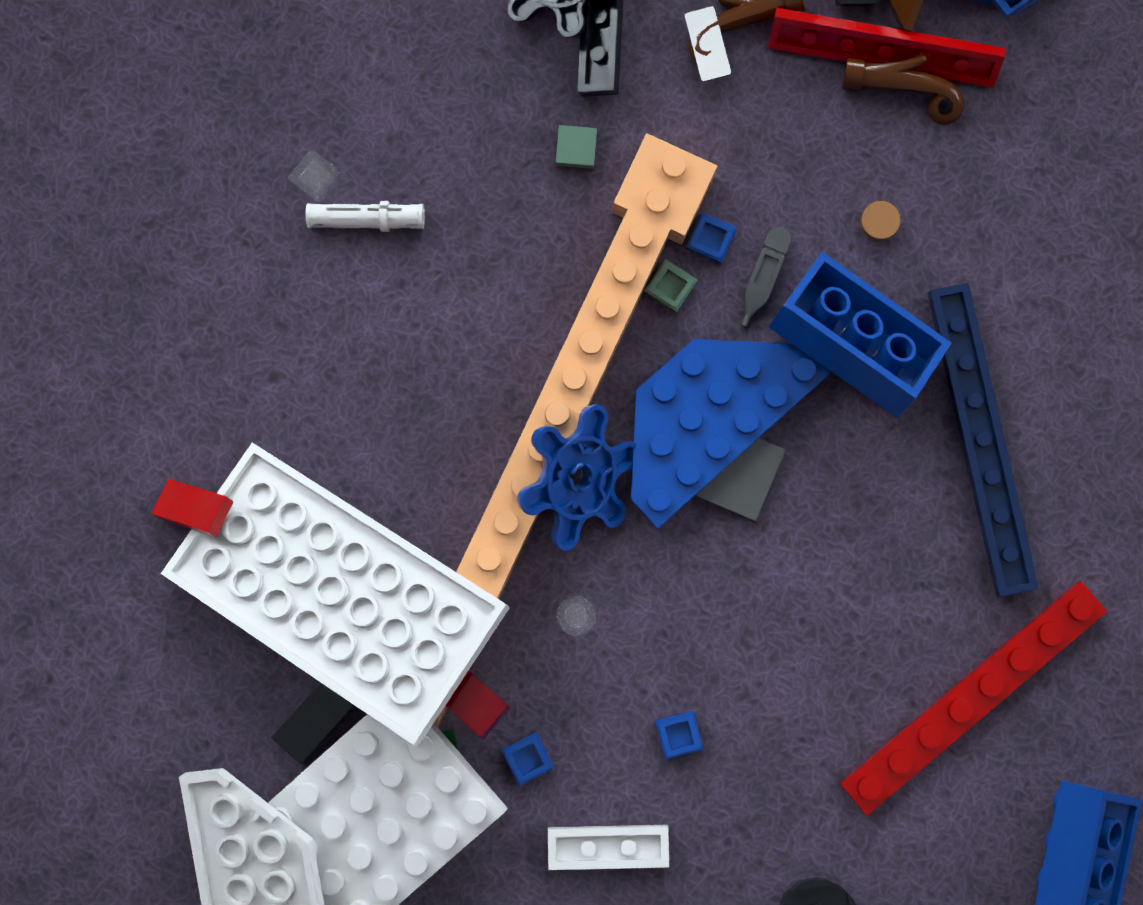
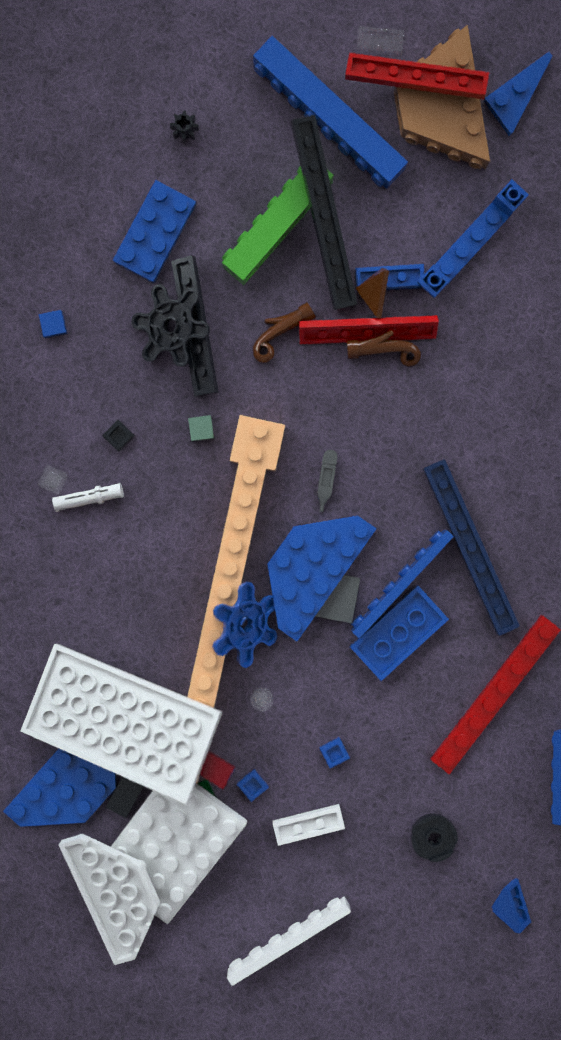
camera: 10 degrees left, 5 degrees up
(192, 507) = (29, 689): red tile -> none
(207, 693) = (62, 792): none -> blue plate
(438, 129) = (118, 435): none -> black tile
(670, 286) = (274, 497): sand green tile -> none
(711, 238) = (291, 464): blue tile -> none
(716, 62) = (271, 361): white sticker -> none
(831, 555) = (399, 632): none -> blue plate
(860, 335) = (388, 505): blue brick -> none
(865, 460) = (407, 575): none -> blue plate
(880, 221) = (386, 432): medium nougat tile -> none

